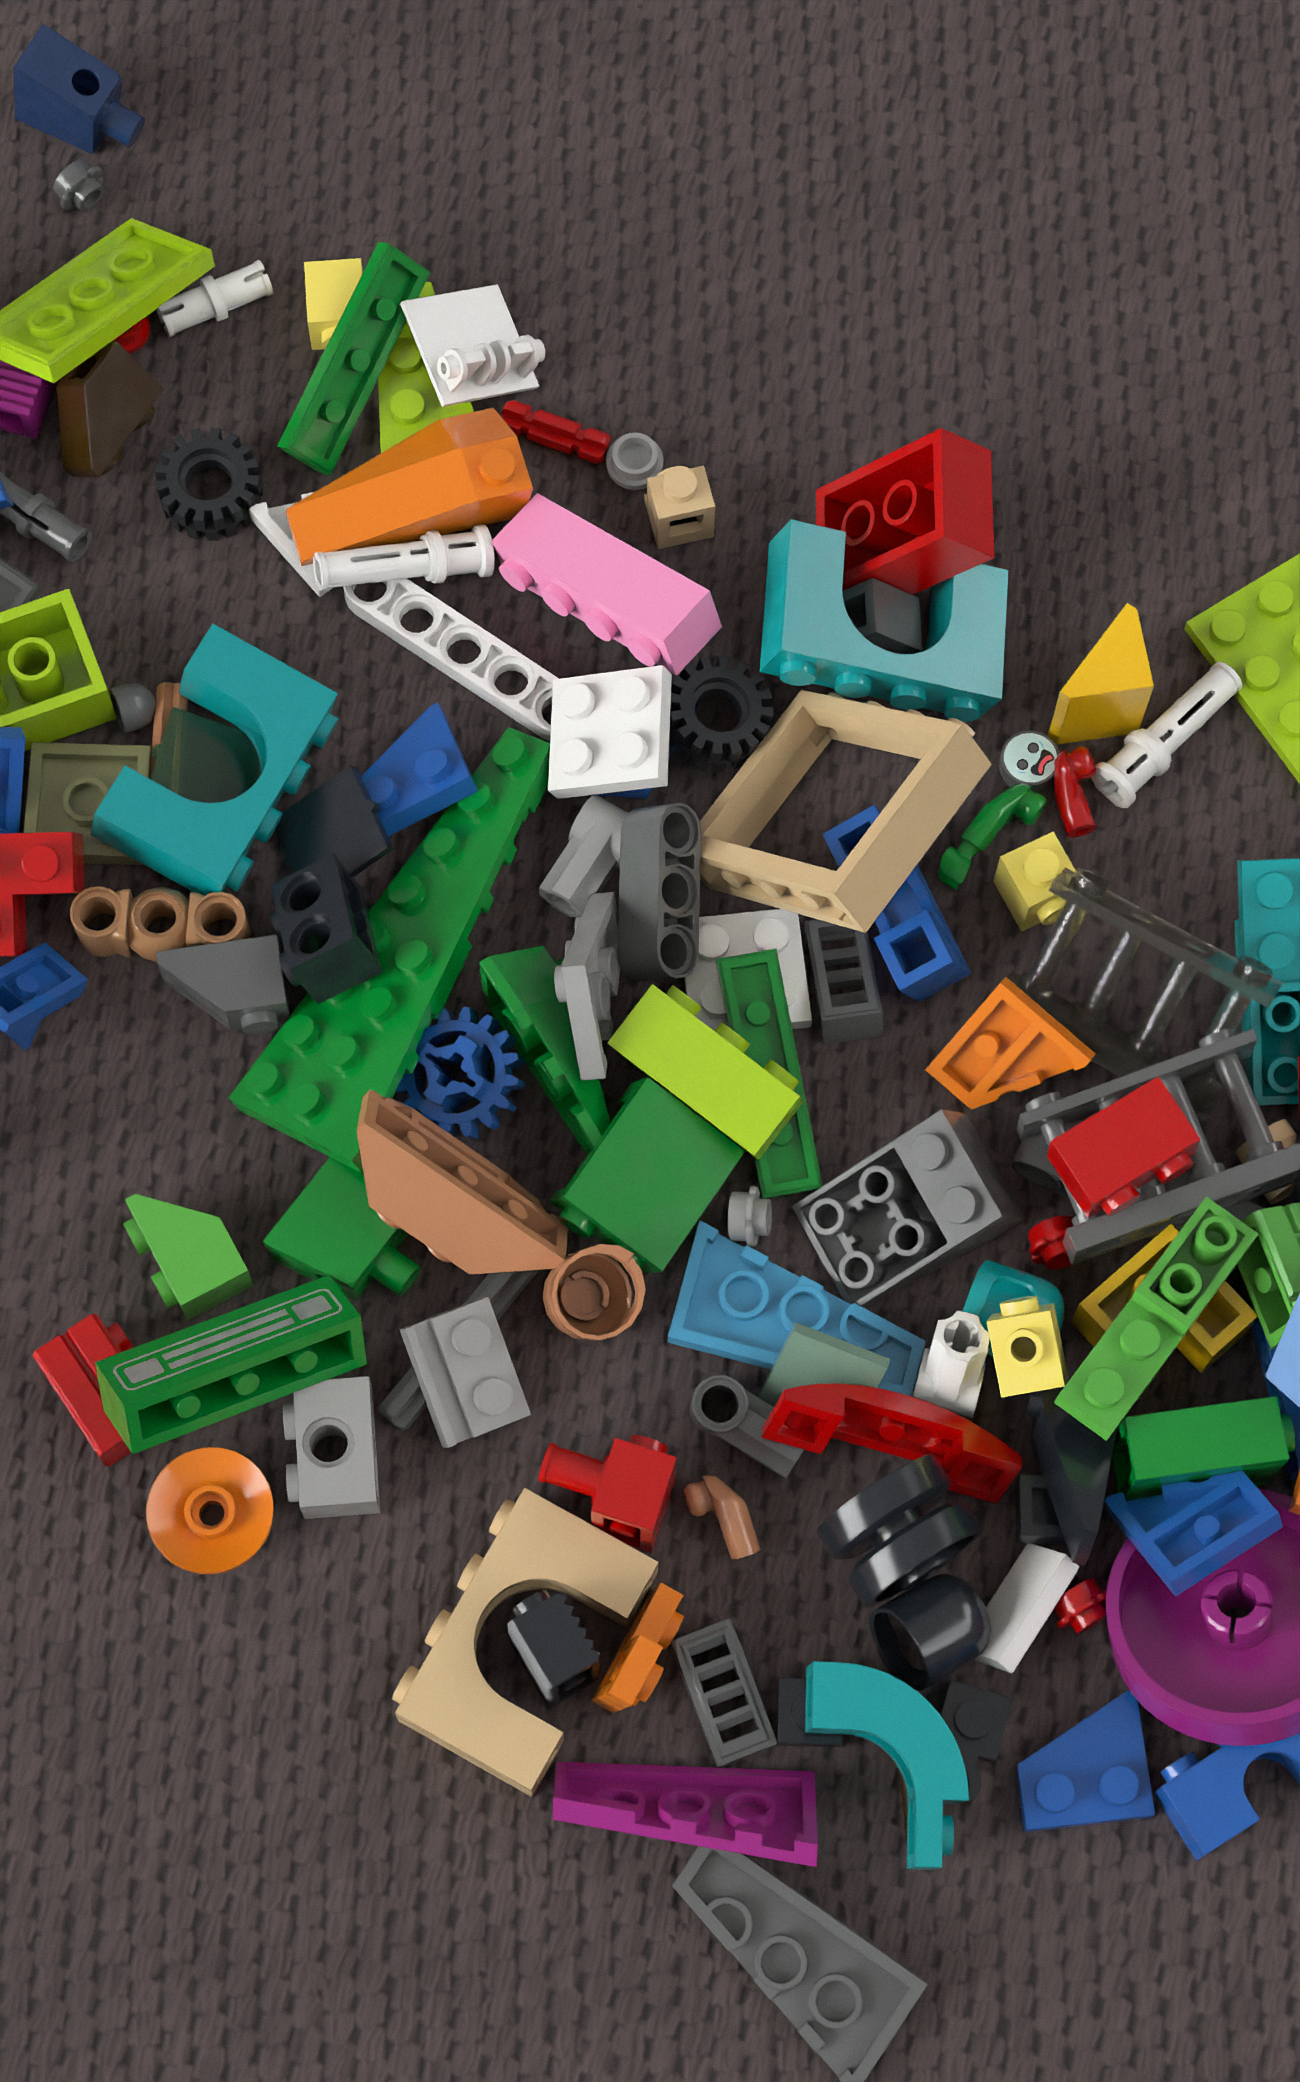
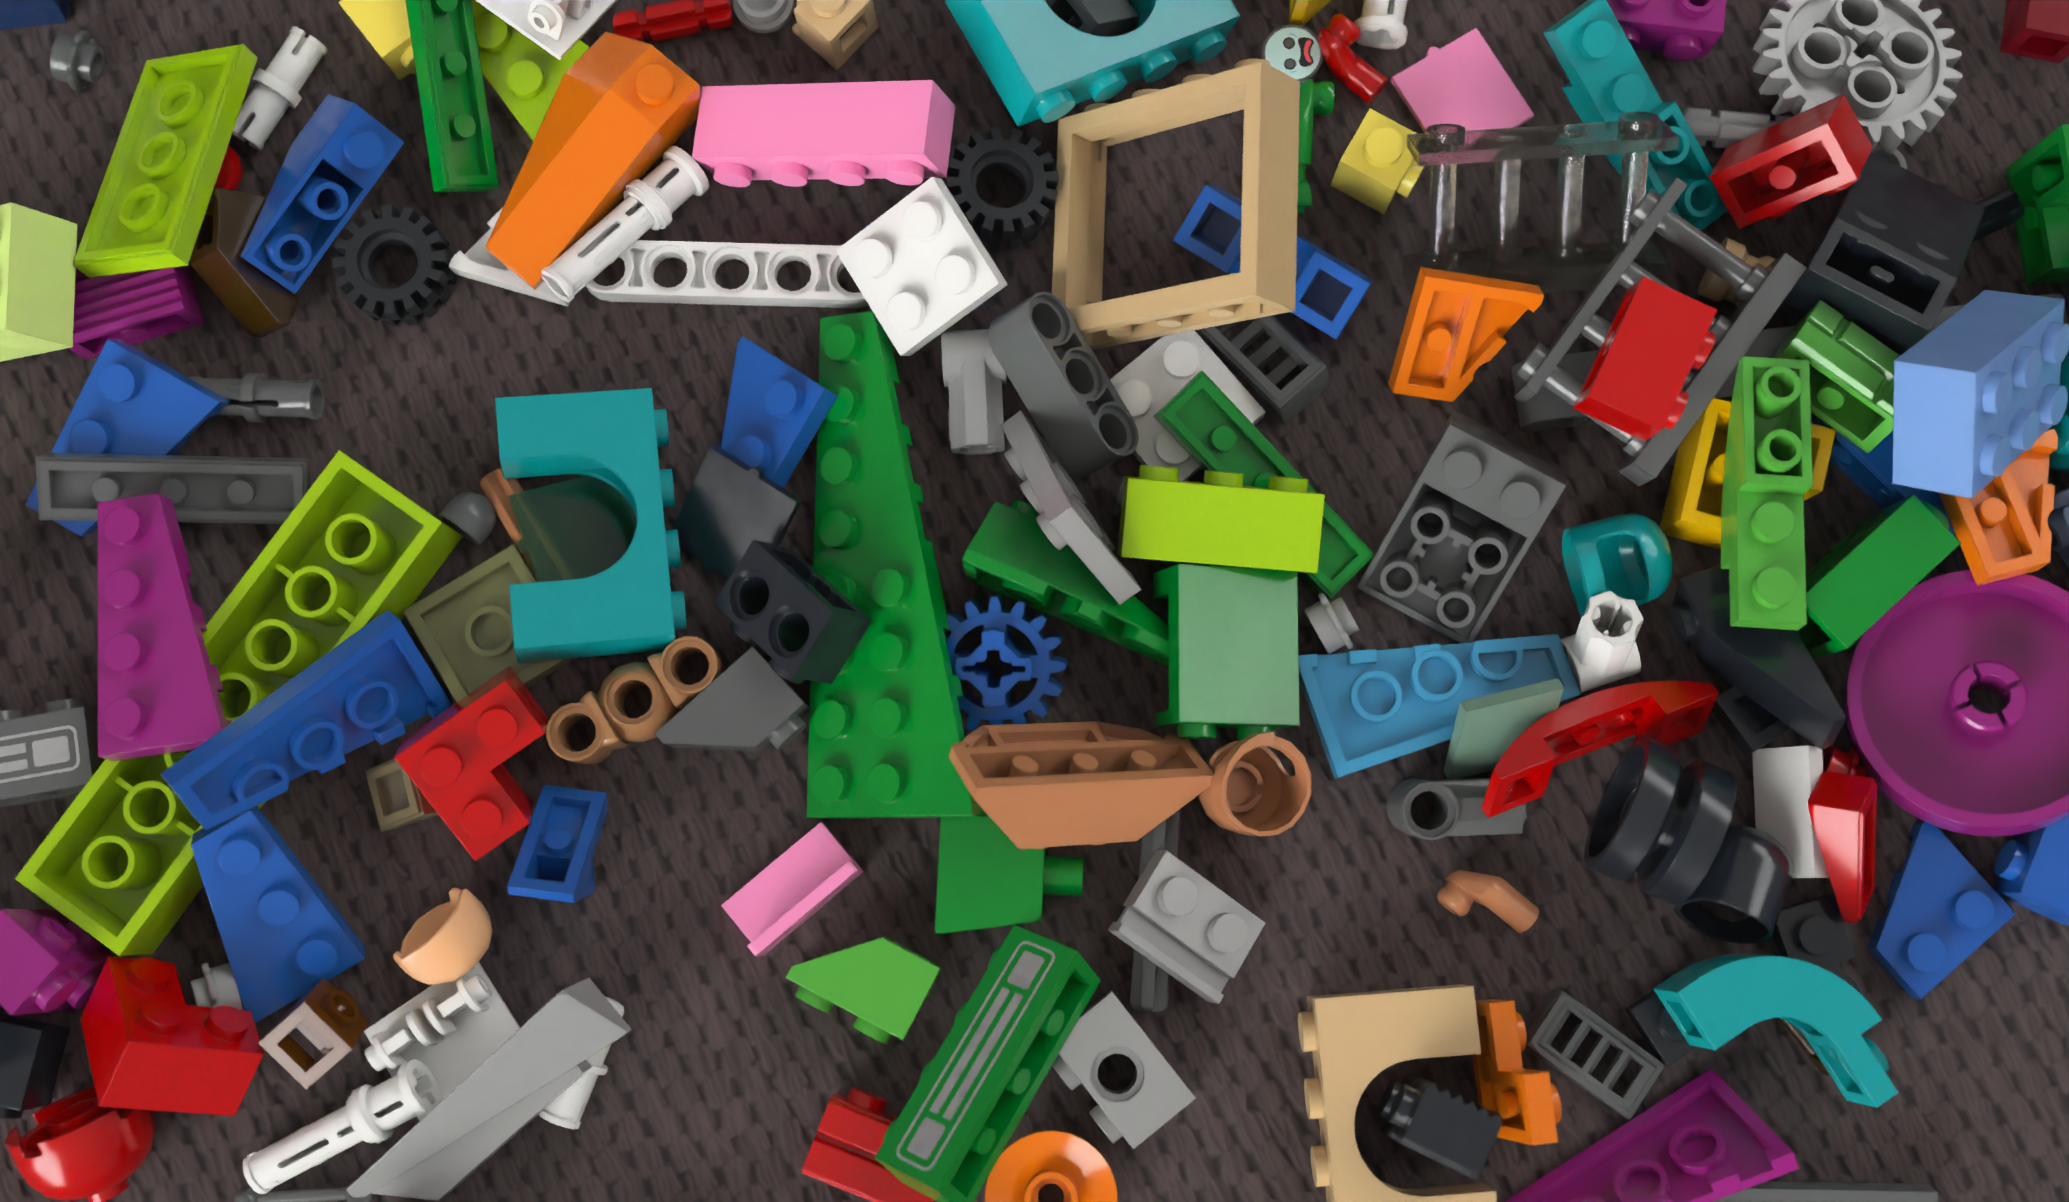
camera: 30 degrees left, 10 degrees up
(178, 1146) = (791, 889): none -> bright pink panel
(190, 391) = (318, 190): none -> blue slope
(626, 1488) = (1405, 938): red brick -> none
(1027, 1347) = (1672, 591): light yellow brick -> none
(1046, 1652) = (1845, 826): none -> red slope
(1047, 1243) = (1601, 473): red plate -> none
(1154, 872) = (1462, 87): none -> bright pink piece
(1195, 1525) = (1911, 652): blue wing -> none

